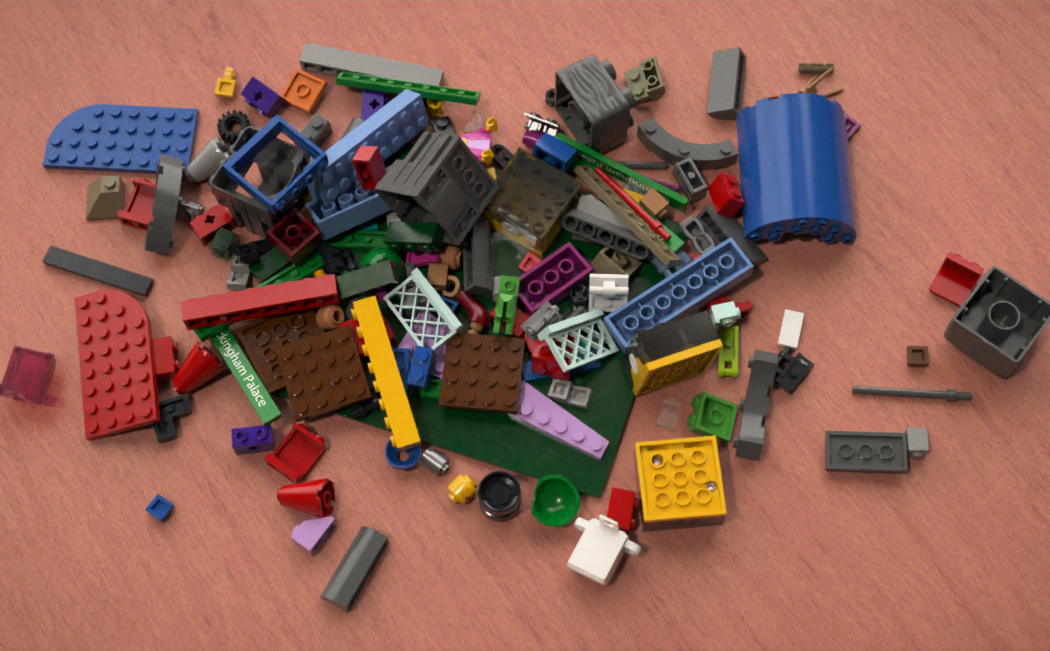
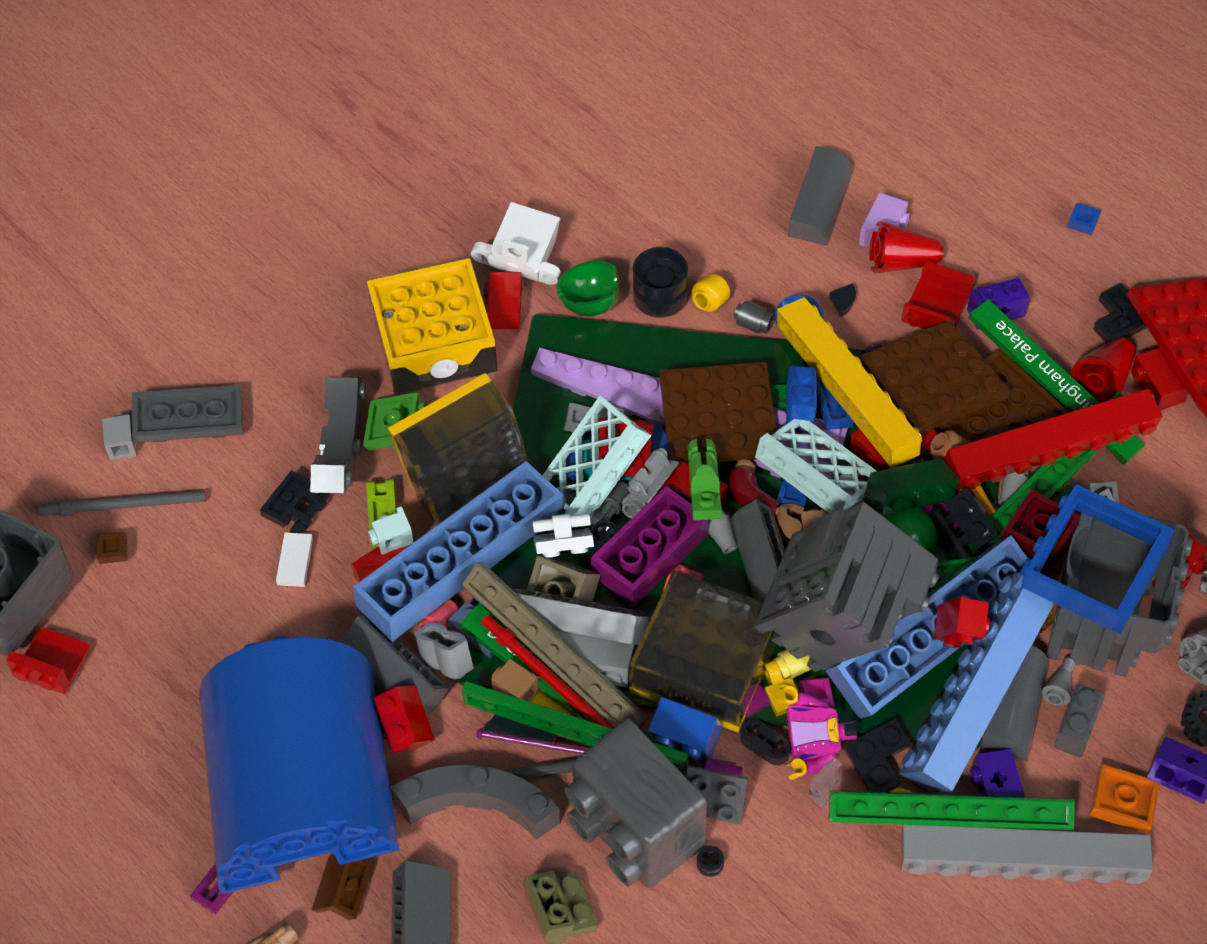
camera: 170 degrees right, 10 degrees down
(363, 471) = (843, 298): none -> black tile
(690, 180) = (463, 738): dark grey brick -> none

